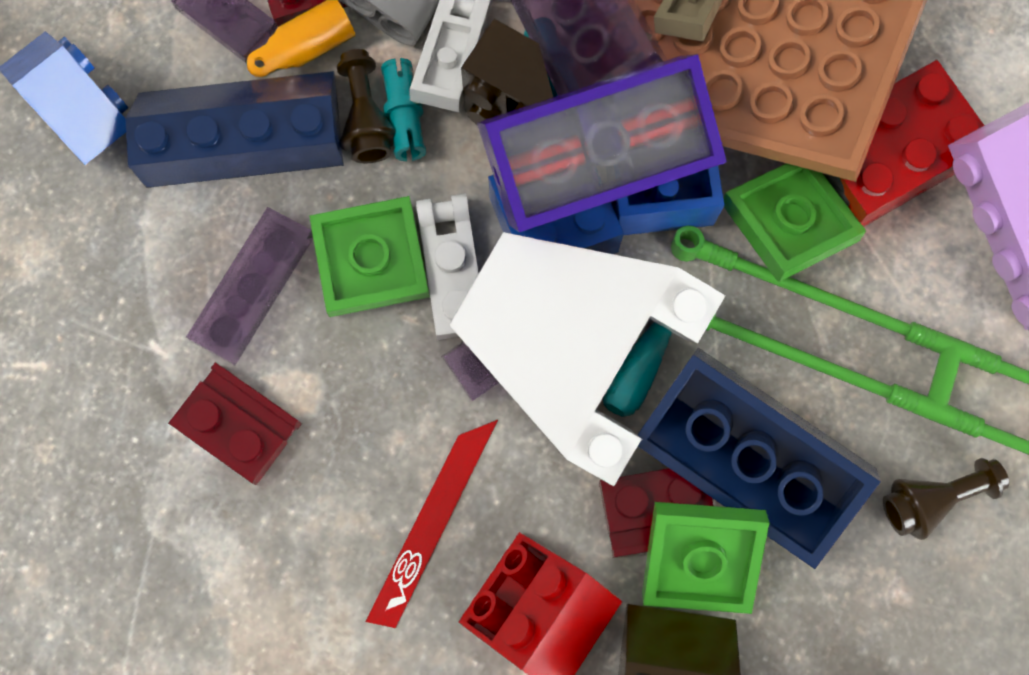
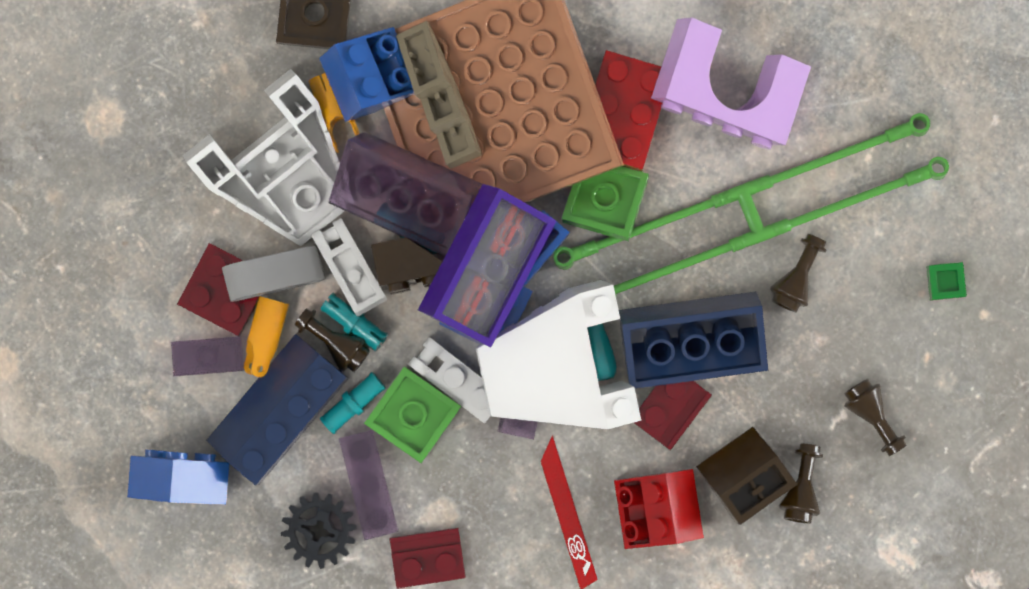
camera: 45 degrees left, 10 degrees up
(128, 284) = (323, 514): none -> black gear
(319, 187) = (352, 403): none -> teal pin
(704, 557) = (712, 413): bright green plate -> none

